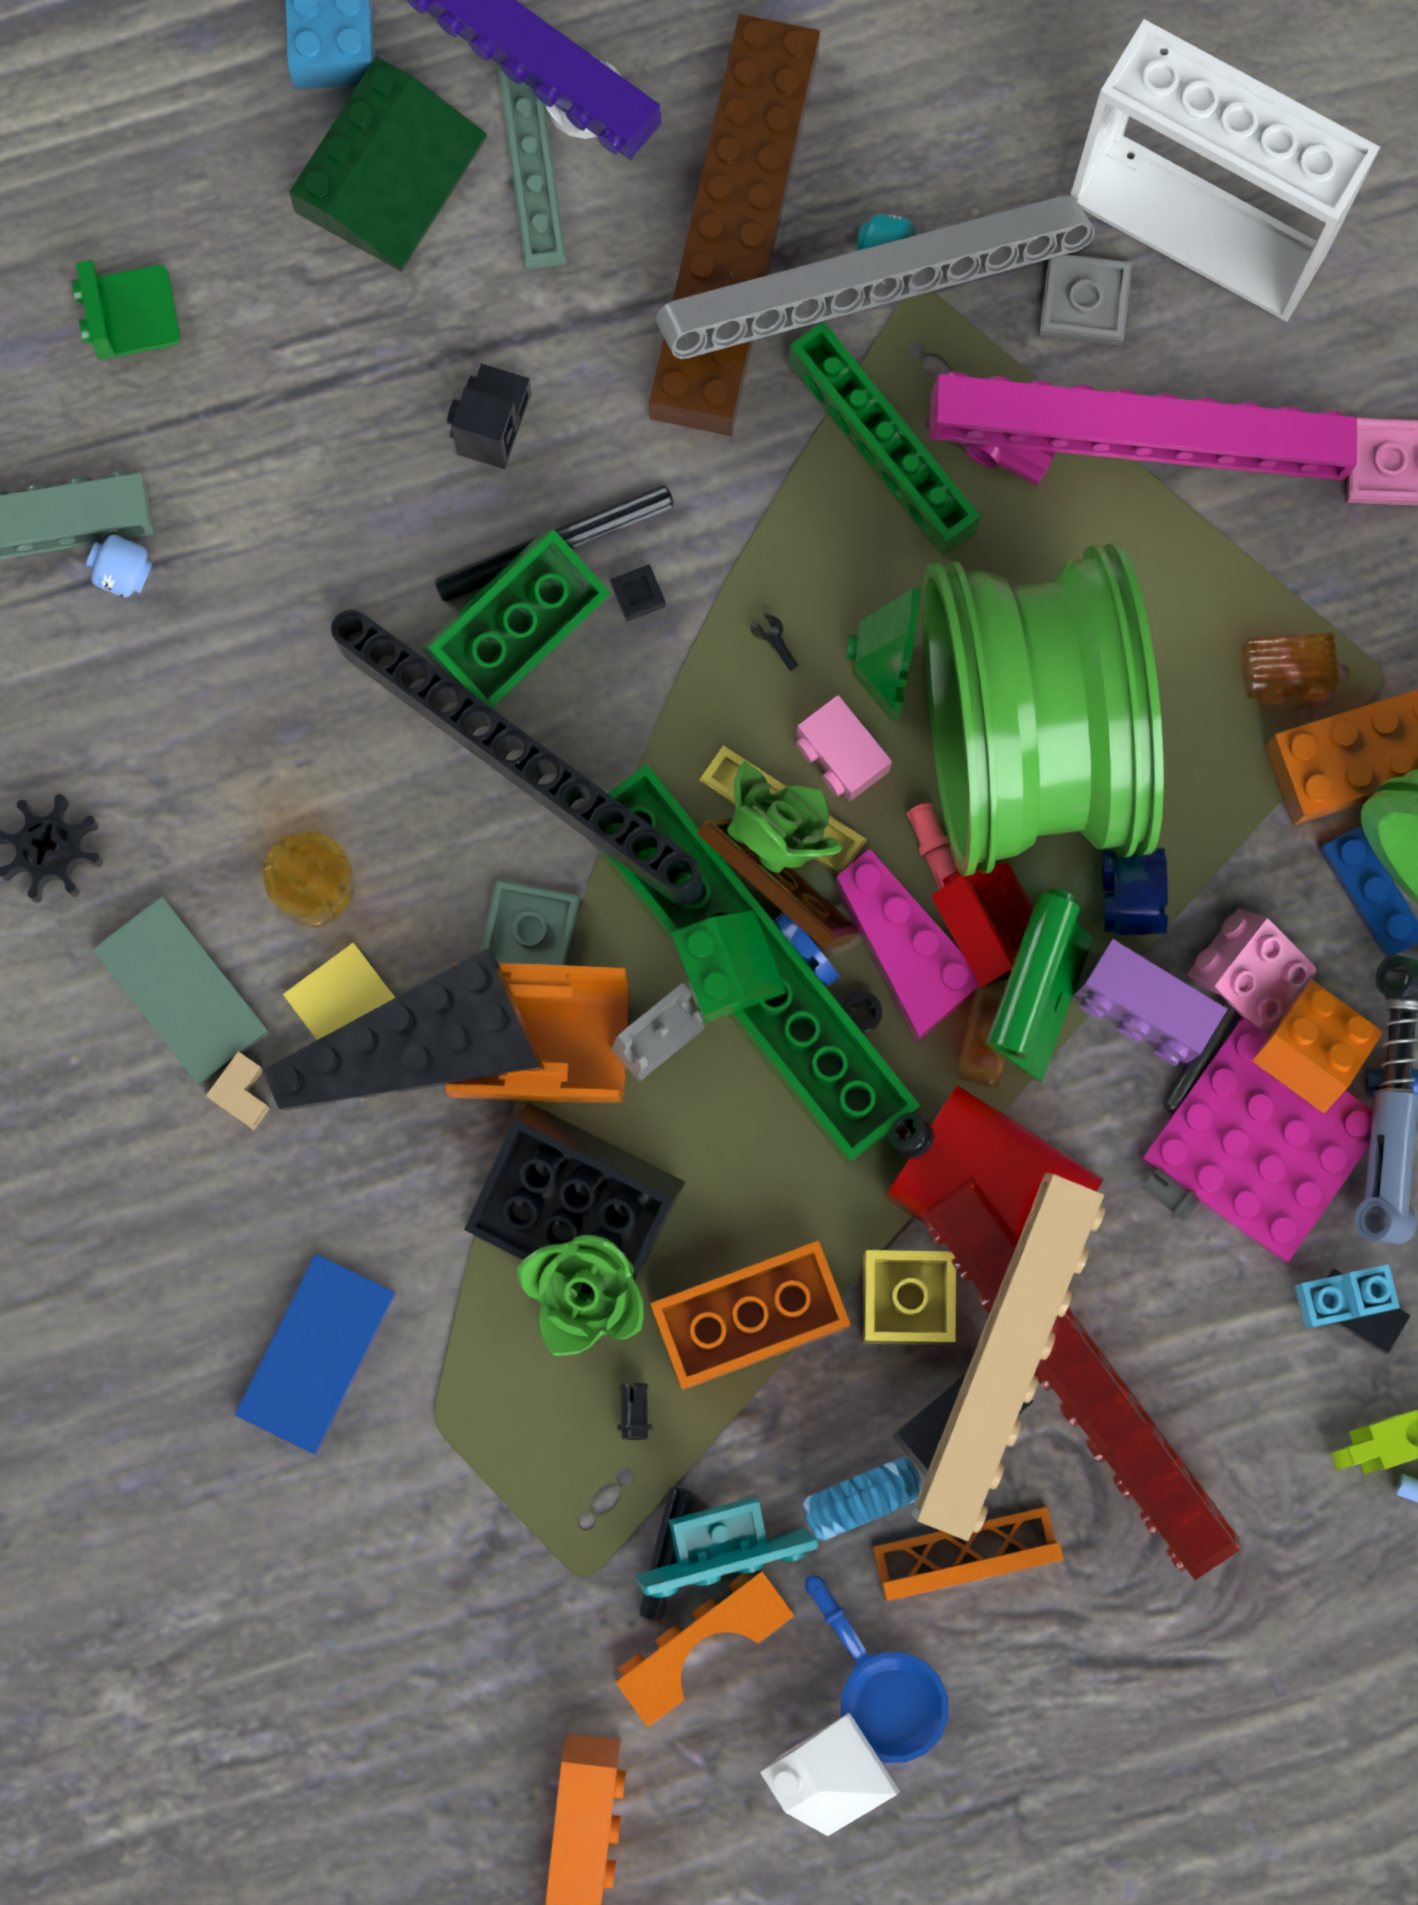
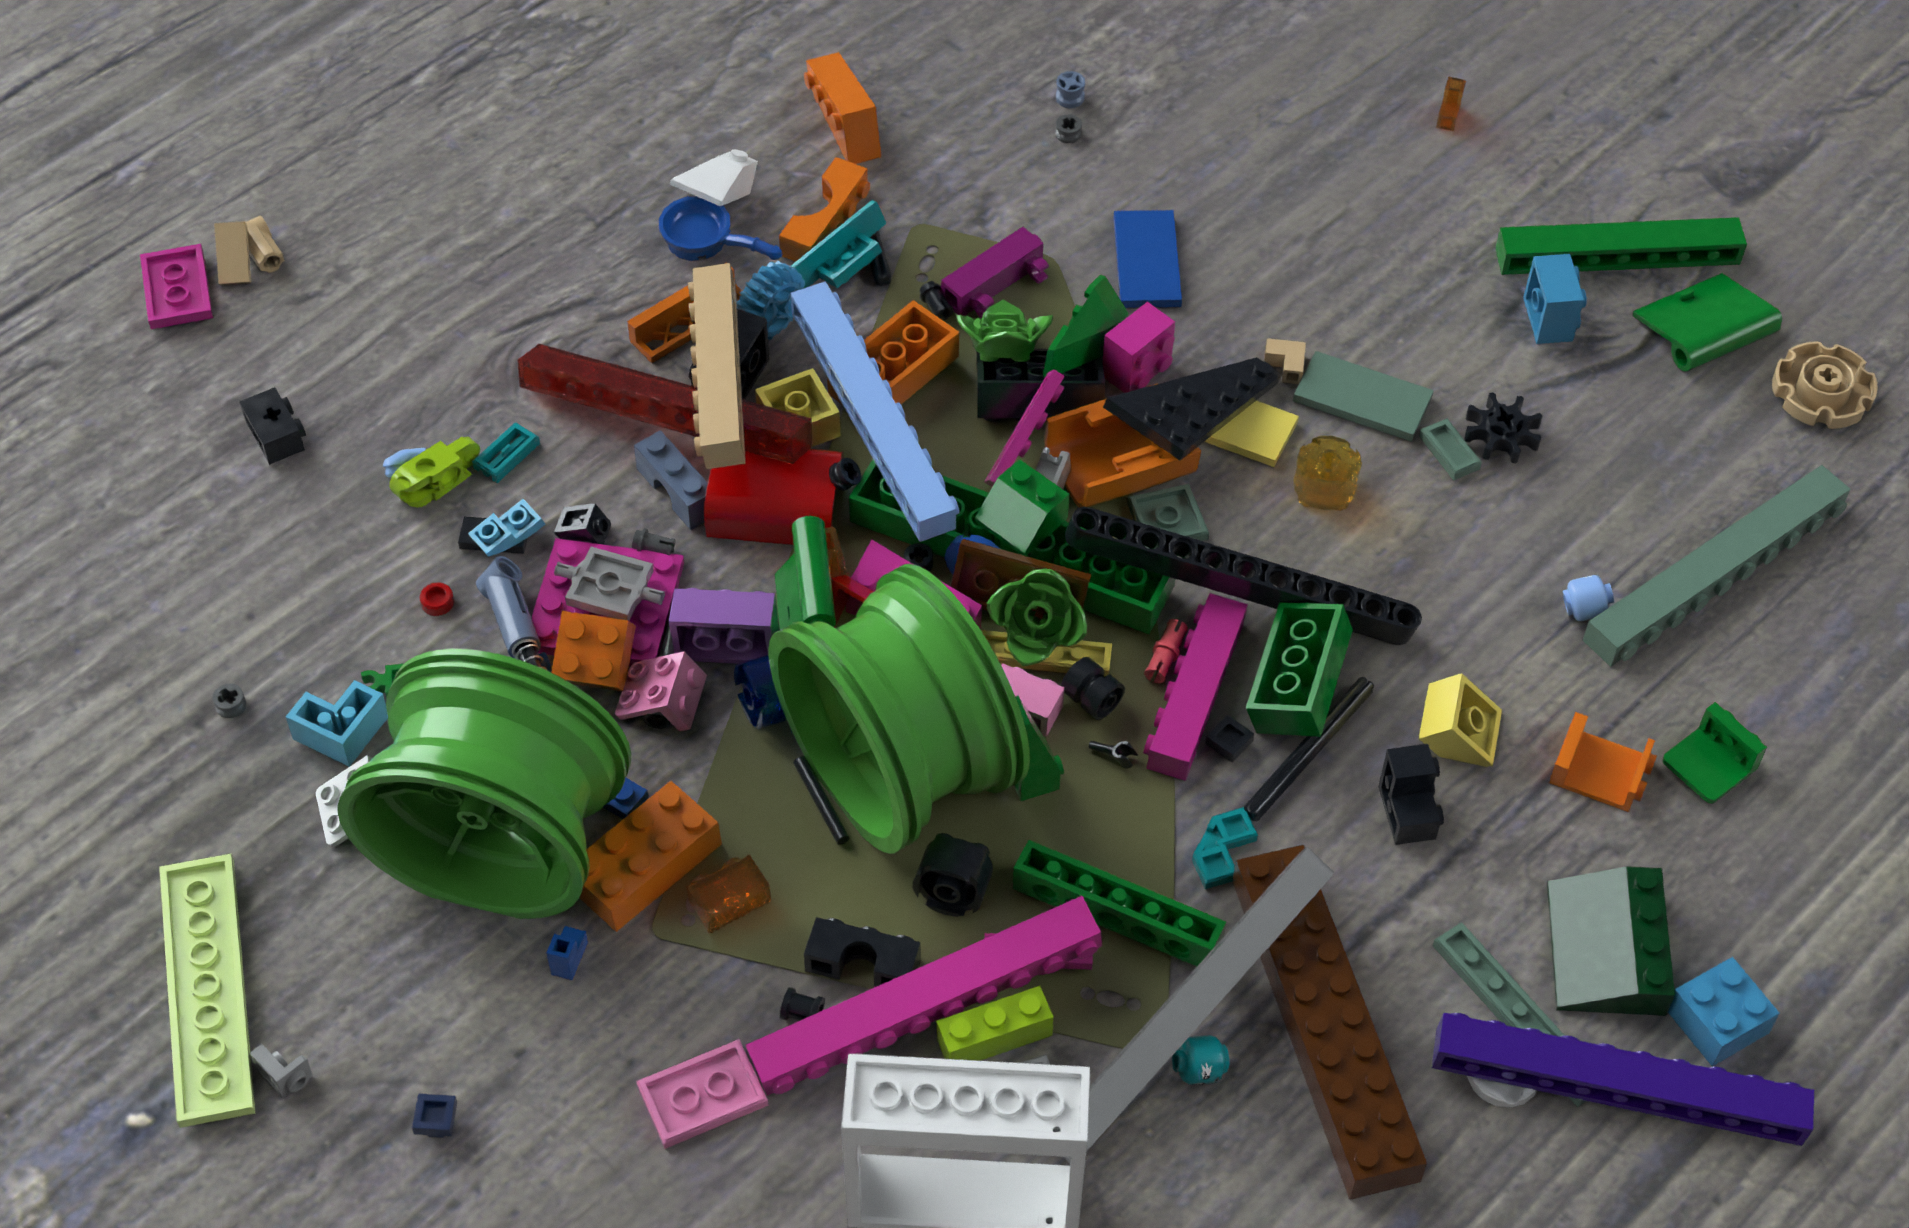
camera: 155 degrees right, 25 degrees down
(127, 861) = (1450, 449): none -> sand green tile
(236, 1720) = (1070, 89): none -> sand blue wheel
(249, 362) = (1601, 767): none -> orange panel
(275, 1637) = (1068, 121): none -> dark grey bush
(373, 484) = (1460, 721): none -> light yellow slope
(428, 1175) = (1138, 348): none -> dark pink brick
(463, 1237) = (1085, 333): none -> green wedge
(535, 1419) = (993, 271): none -> magenta brick
(641, 669) = (1196, 686): none -> dark pink brick
(642, 740) = (1166, 651): none -> coral pin
(648, 1107) = (1032, 418): none -> dark pink plate
(712, 490) = (1222, 834): none -> teal tile
(758, 716) = (1088, 685): none -> black wheel
(832, 1215) = (874, 412): none -> light blue brick
(1036, 547) = (953, 875): none -> black brick
(1081, 363) = (996, 1026): none -> lime brick
(1110, 1281) = (666, 466): none -> sand blue arch
(1200, 549) = (836, 944): none -> black arch
(1247, 1265) = (583, 522): none -> black bracket
(1259, 1136) = (609, 584): none -> light grey plate
(1260, 1457) = (510, 454): none -> teal tile
(1269, 498) = (799, 1005): none -> black bush

